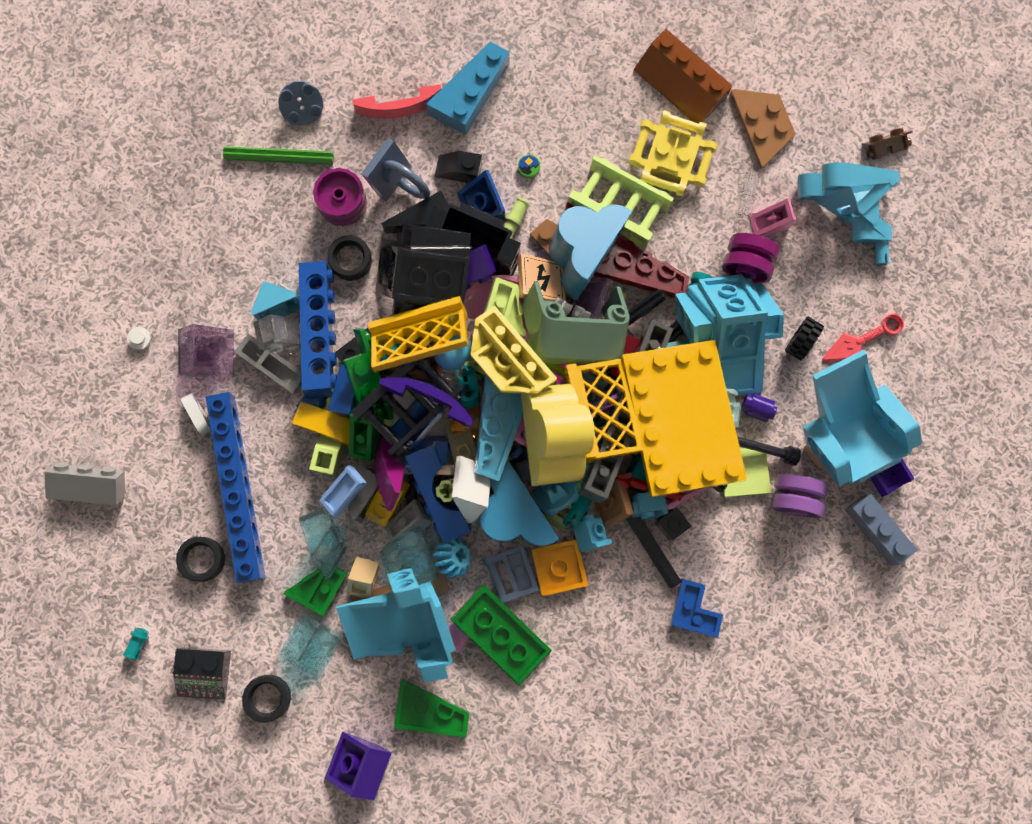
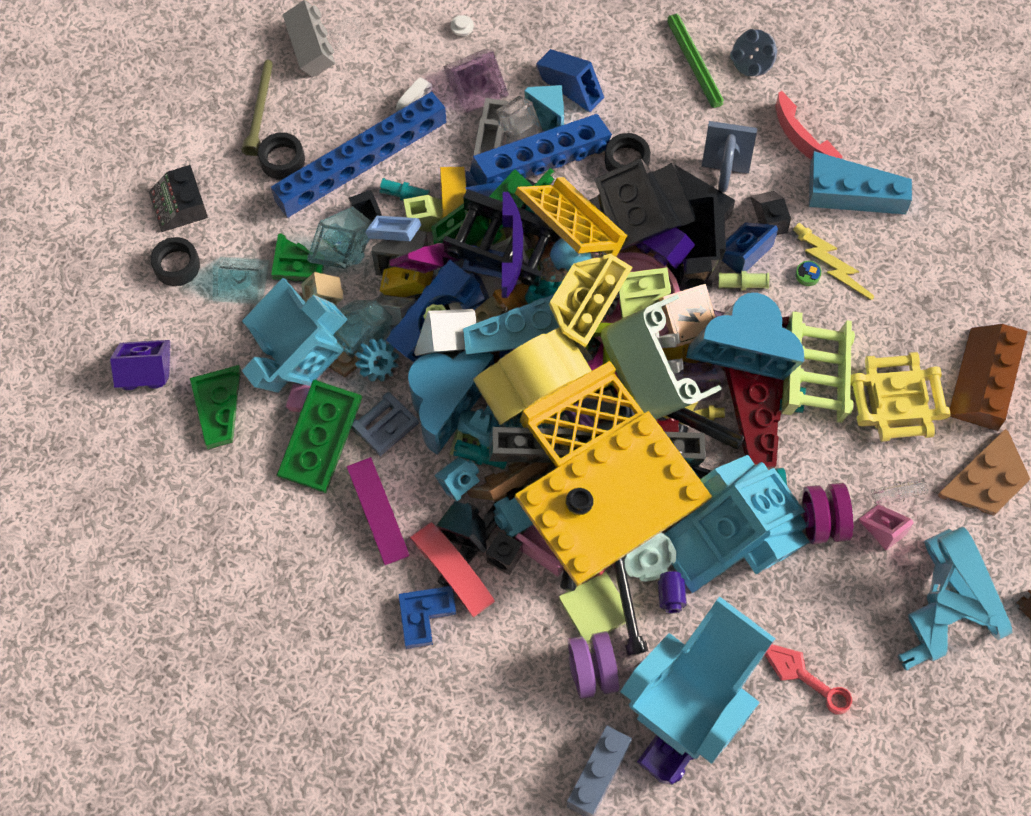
camera: 70 degrees right, 15 degrees down
(136, 643) = (180, 139): teal pin -> none
(173, 581) = (252, 142): none -> olive piece
(247, 268) = (575, 76): none -> blue slope
(291, 463) = (401, 190): none -> teal pin
(295, 505) = (366, 204): none -> black panel
(340, 196) = (681, 121): magenta wheel -> none
(514, 148) = (820, 252): none -> light yellow piece
(559, 567) = (410, 465): light orange plate -> none
(590, 612) = (378, 511): none -> magenta slope
(627, 480) = (524, 480): red piece -> none
(639, 546) = (464, 526): none -> black slope
(665, 572) = (453, 569): none -> coral slope
(682, 447) = (579, 501): none -> black plate
(804, 338) = (770, 604): black tyre -> none

